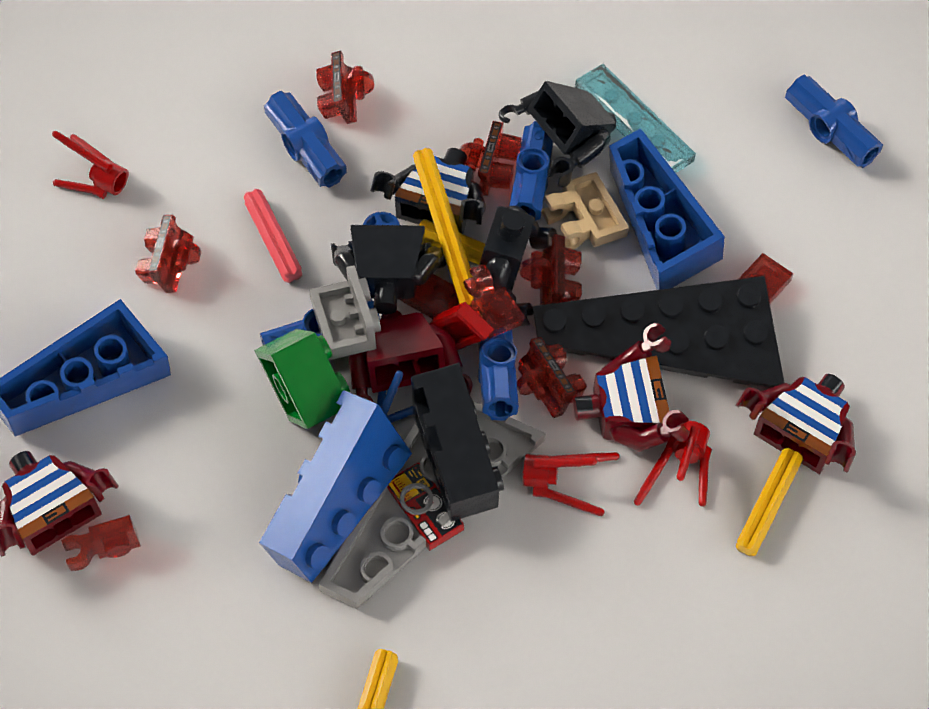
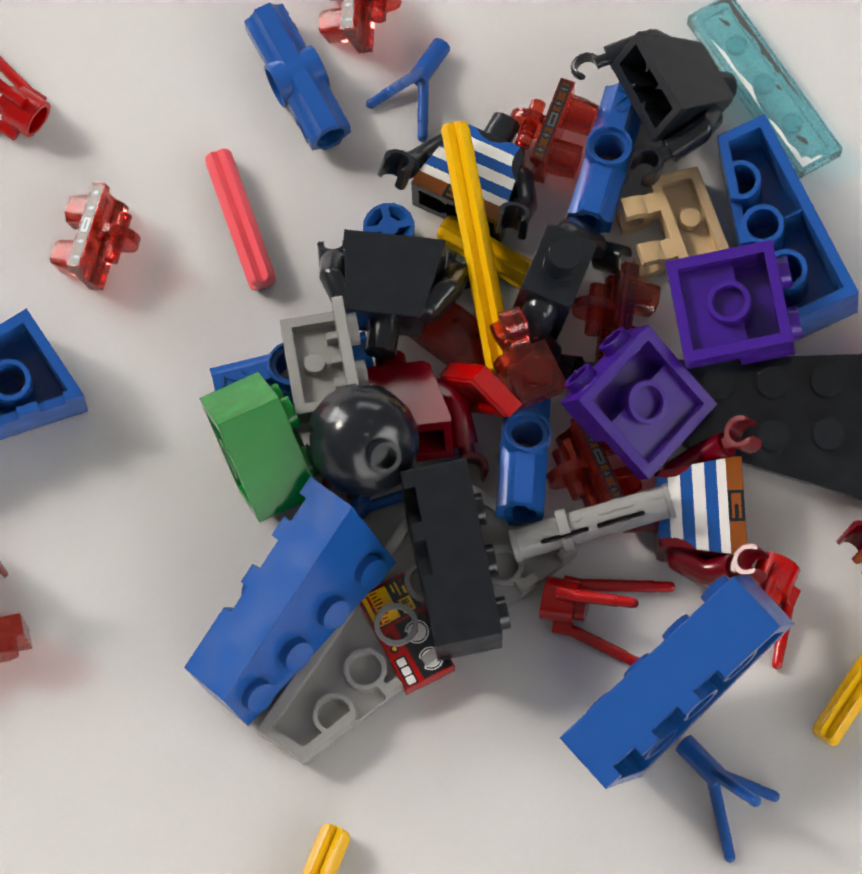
camera: 10 degrees right, 10 degrees up
(379, 361) = (362, 439): none -> black cylinder
(392, 133) = (420, 77): none -> blue plant
(510, 427) = (591, 523): none -> light grey pin
(577, 321) = (637, 399): none -> dark purple plate
(634, 511) = (677, 681): none -> blue wedge
(638, 250) = (733, 305): none -> dark purple plate
(669, 586) = (715, 776): none -> blue plant

